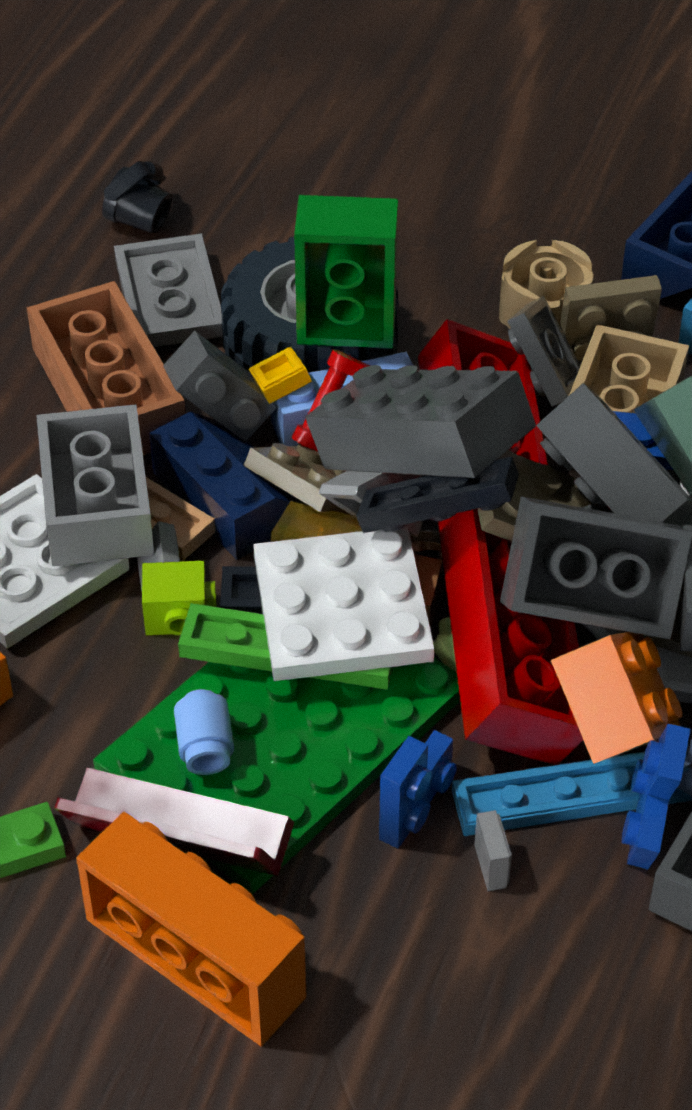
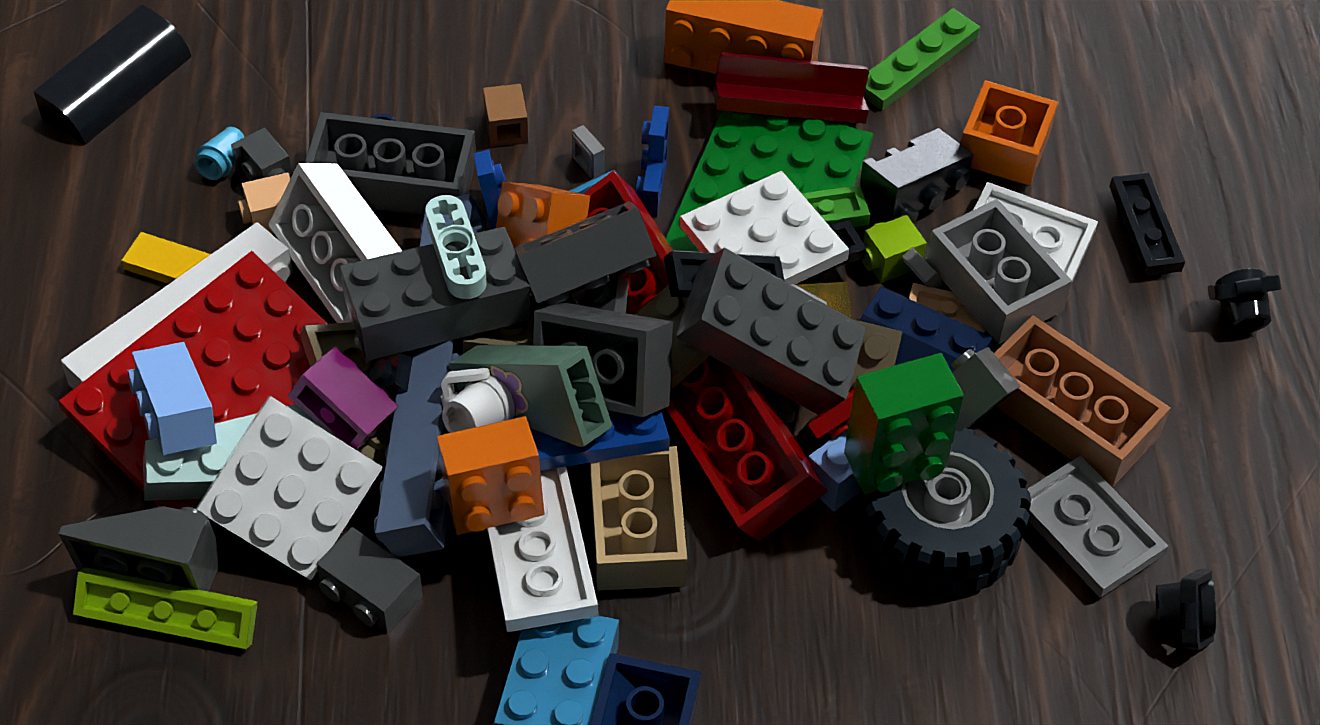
camera: 155 degrees right, 5 degrees up
(96, 658) = (914, 178): none -> black wedge
(204, 732) = (807, 142): light blue brick -> none
(540, 338) = (720, 521): dark grey plate -> none
(541, 271) = (755, 622): tan brick -> none
(586, 950) = (505, 115): none -> medium nougat brick
(615, 304) = (682, 591): dark tan plate -> none

